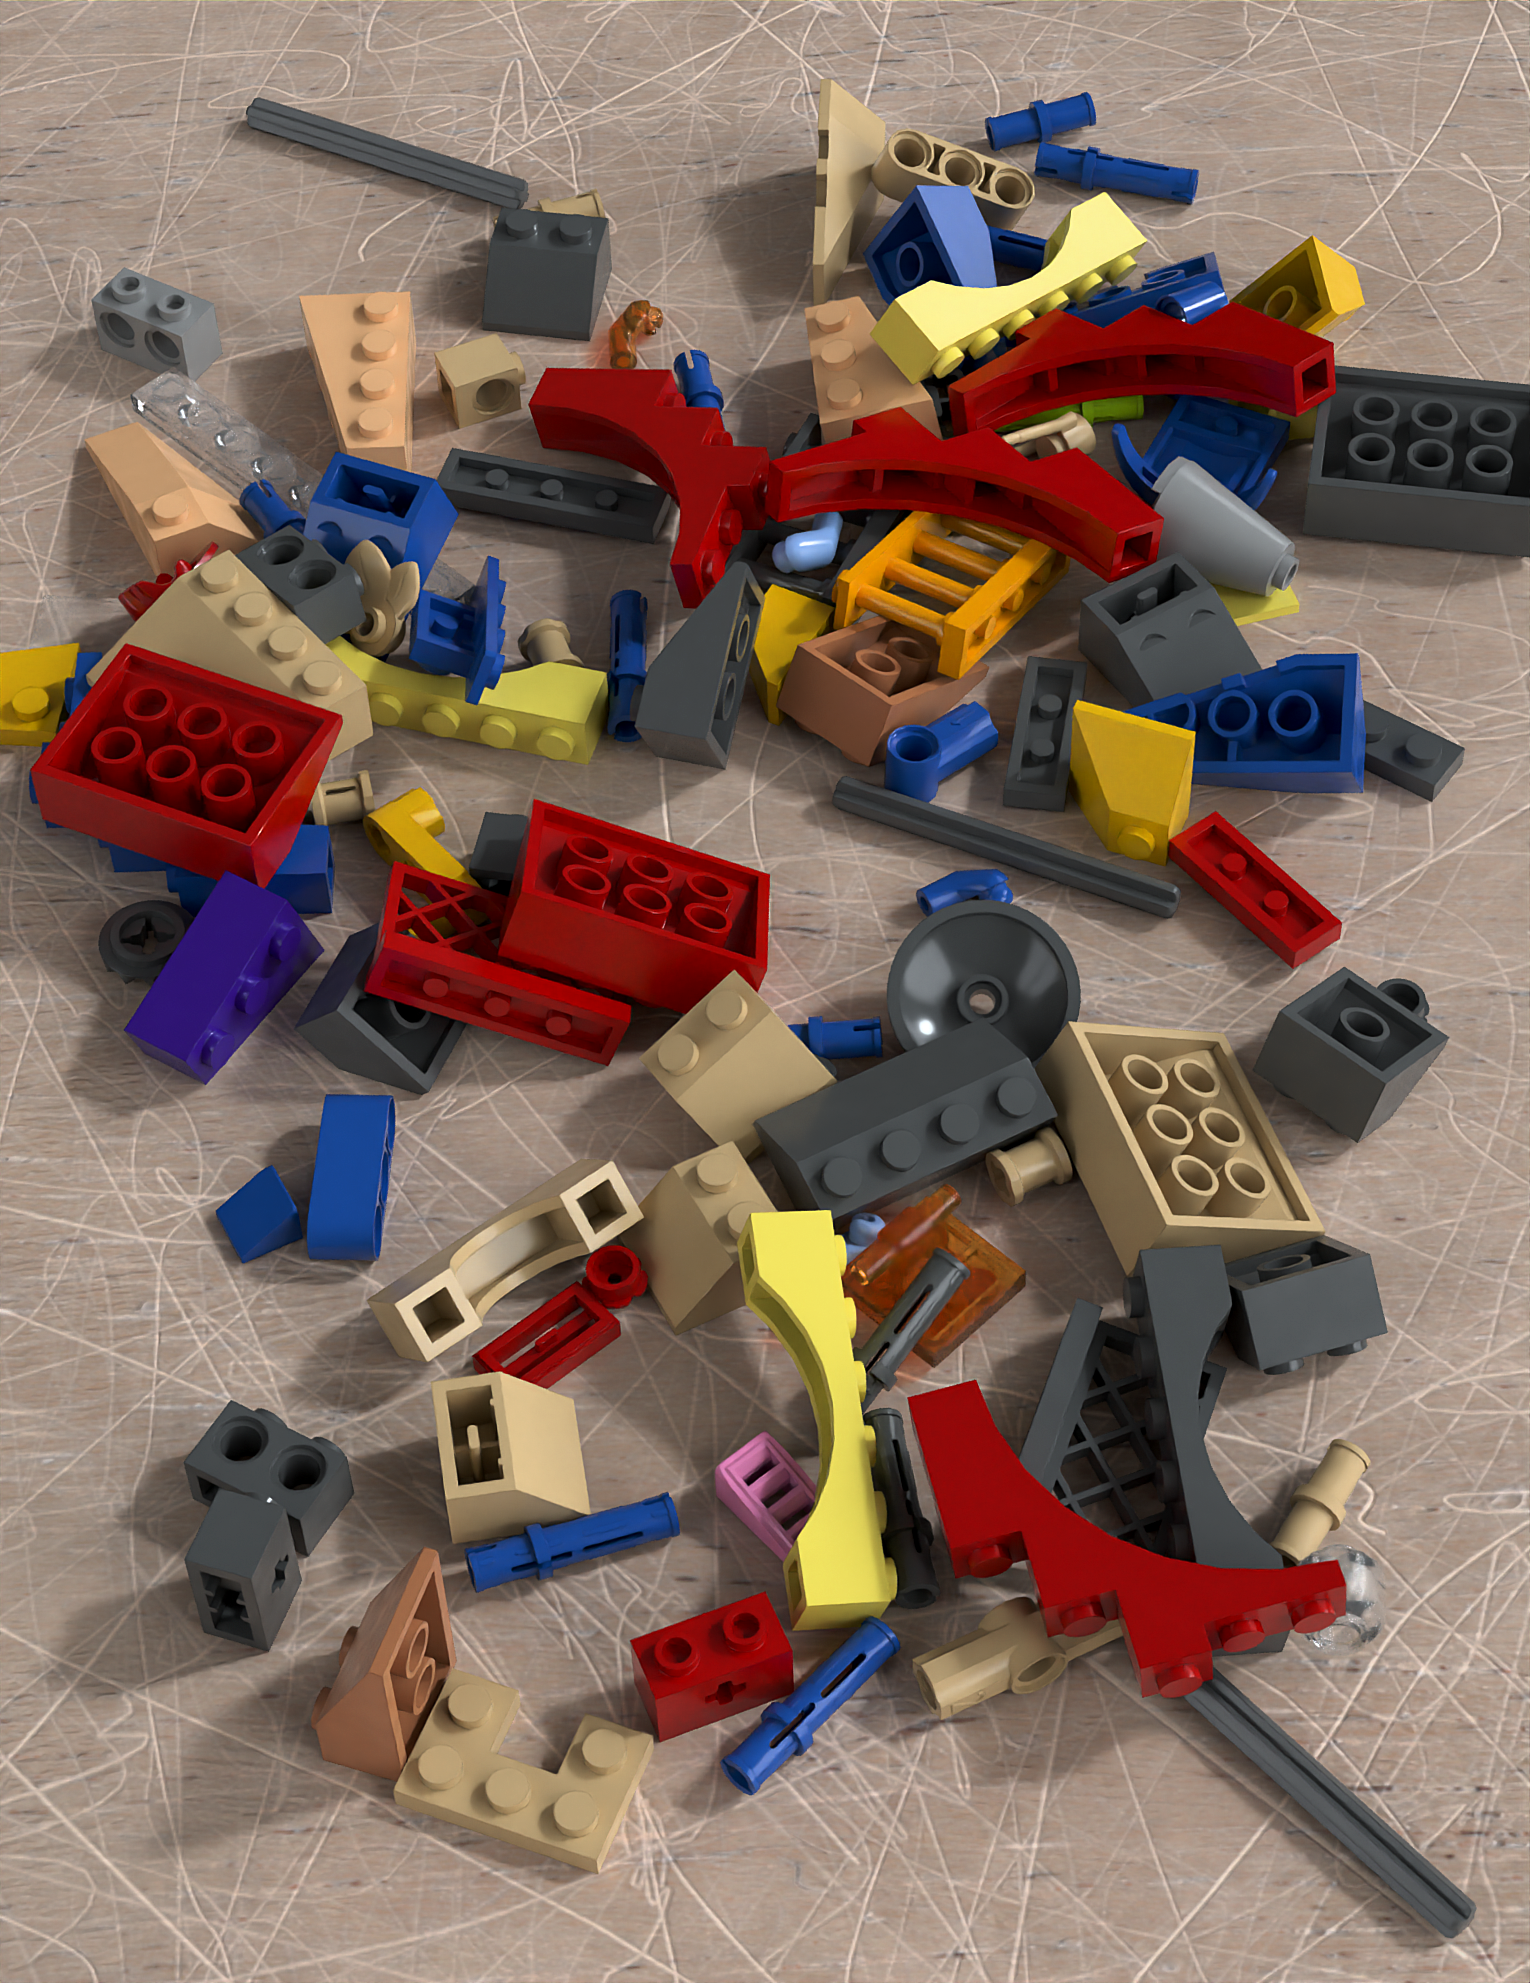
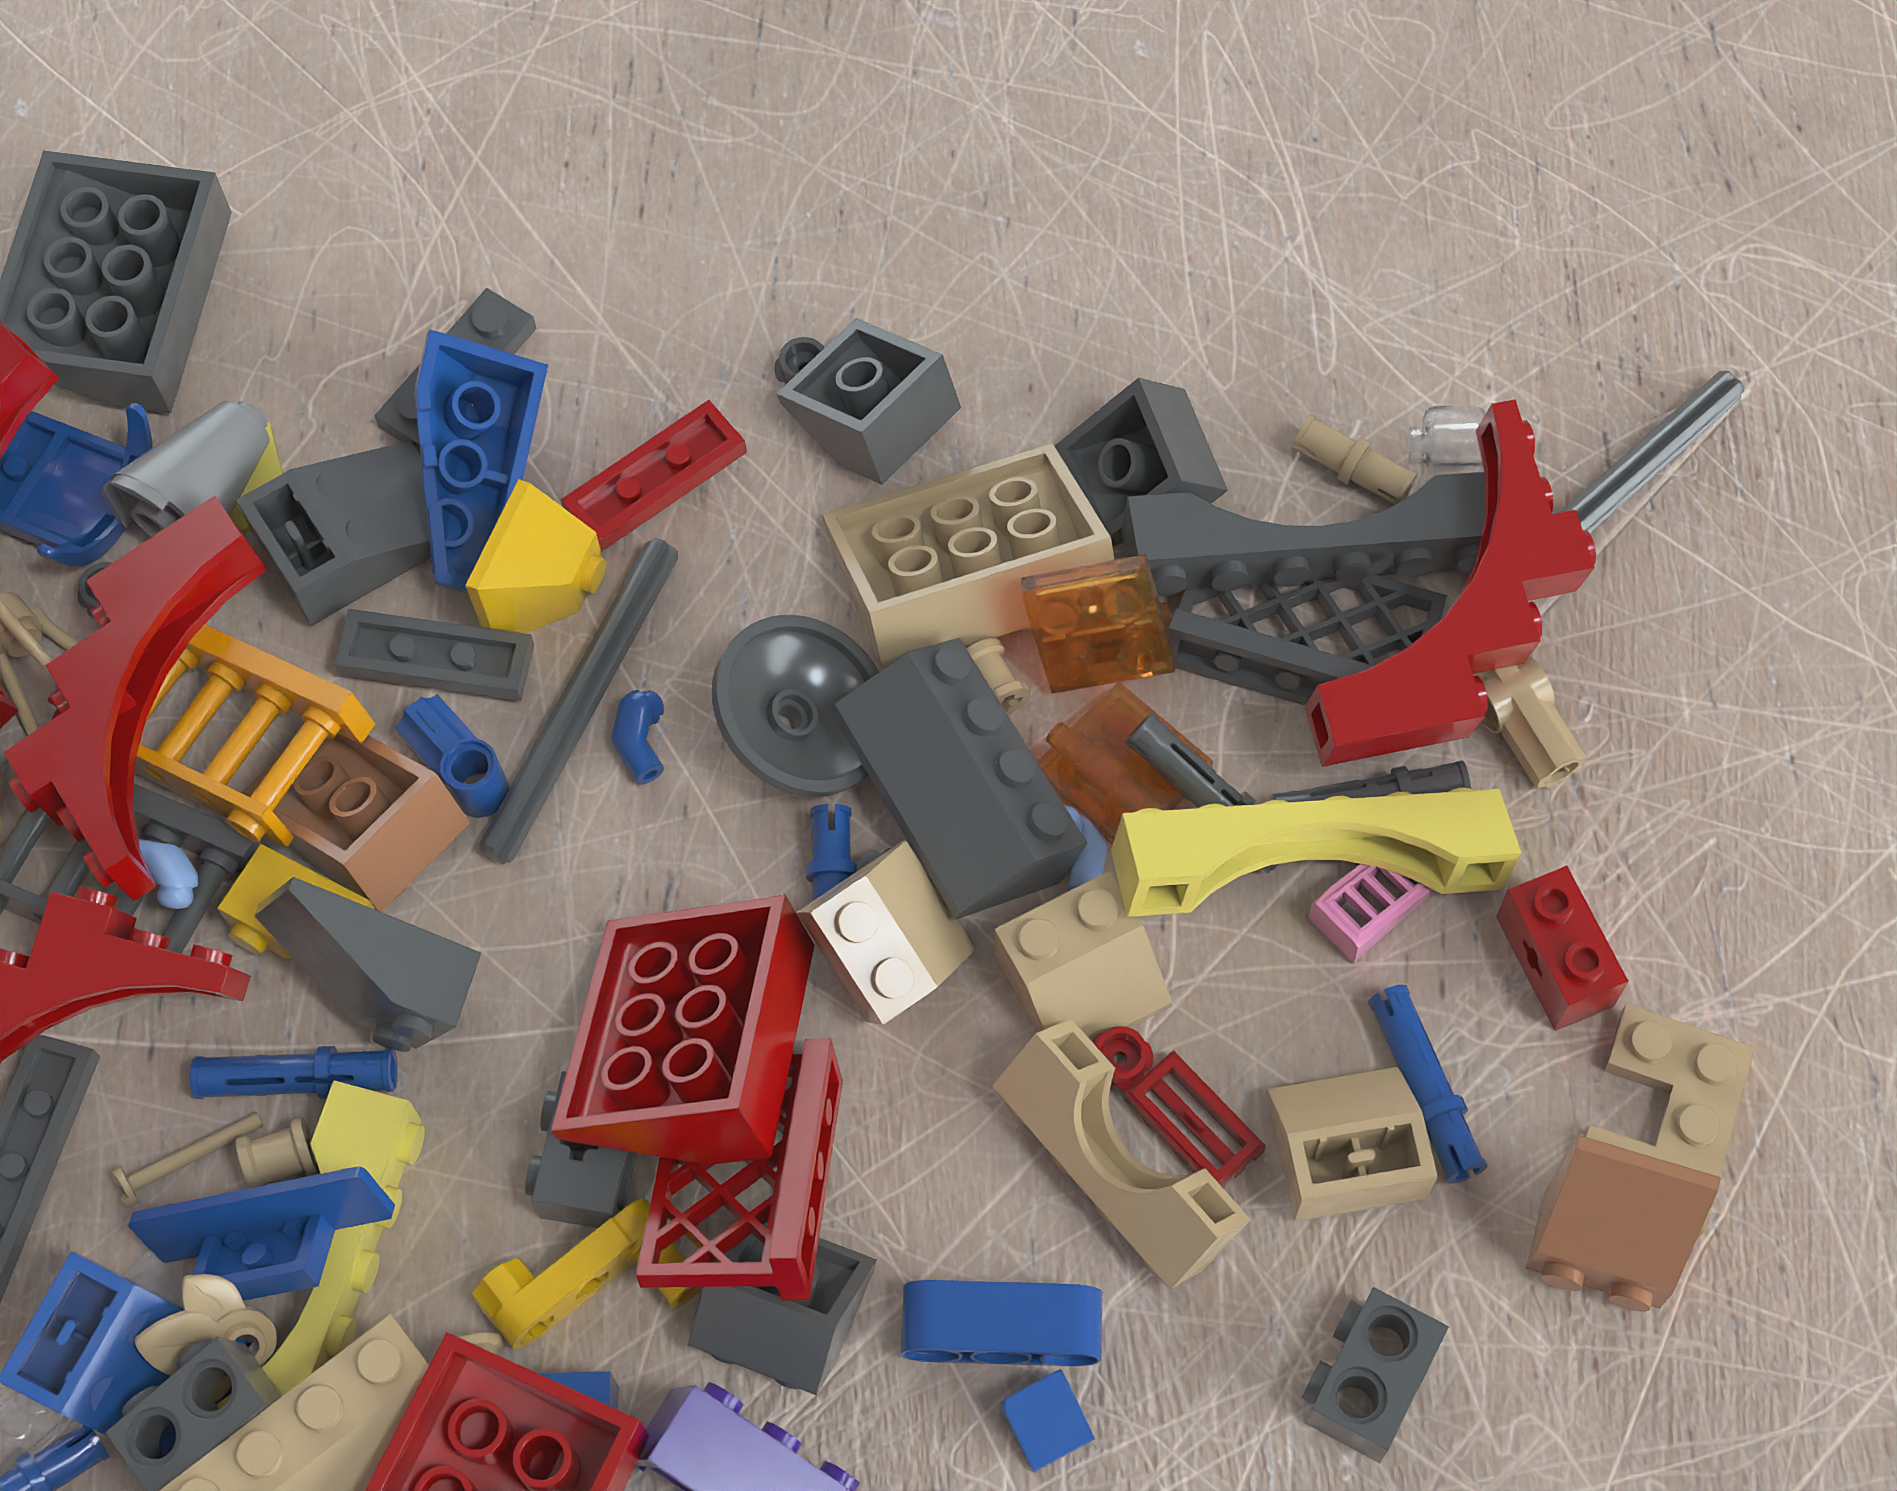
camera: 90 degrees left, 15 degrees up
(244, 1568) = (1507, 1375): dark grey brick -> none
(534, 570) = (182, 1158): none -> tan piece
(754, 1758) = (1600, 884): blue pin -> none
(1074, 1235) = (1099, 624): none -> clear orange plate

